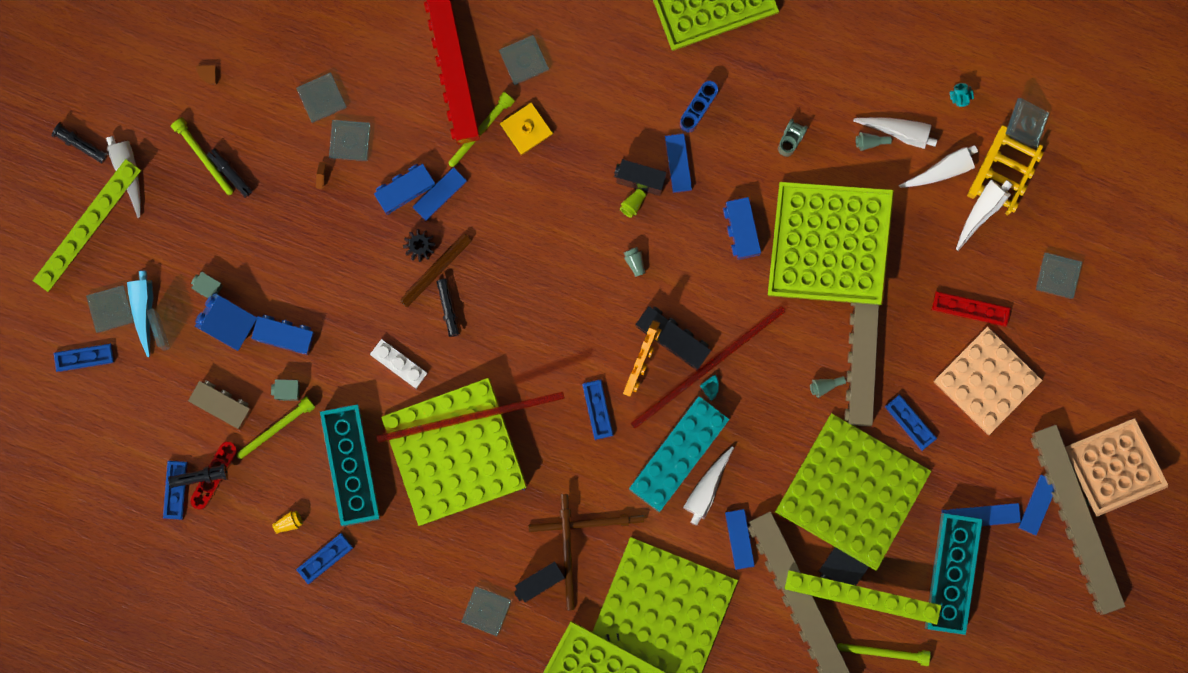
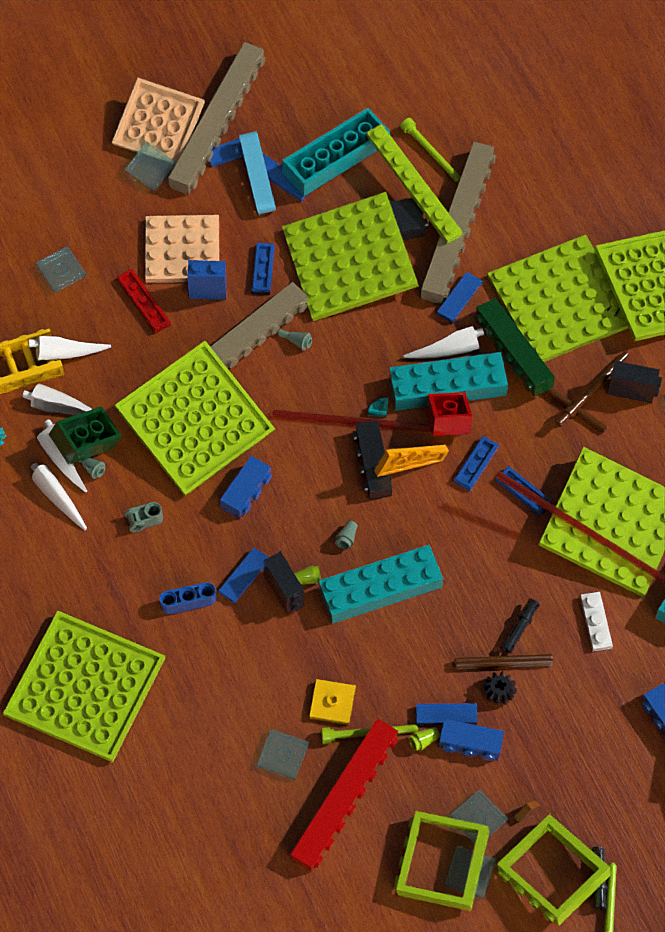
camera: 135 degrees left, 20 degrees down
(263, 176) = (550, 824): none -> lime window
(317, 98) = (434, 897): none -> lime window
(438, 159) = (421, 739): none -> lime cone
(543, 420) = (526, 501): none -> blue tile
(574, 244) = (380, 584): none -> teal brick
(650, 423) = (449, 413): none -> red brick
(656, 529) = (514, 347): none -> dark green brick
(874, 98) = (55, 492): none -> white piece
(893, 152) = (84, 435): none -> dark green brick
(935, 362) = (207, 279): none -> blue brick
(995, 497) = (257, 172): none -> medium azure beam
(1083, 425) = (150, 166): none -> clear light blue tile

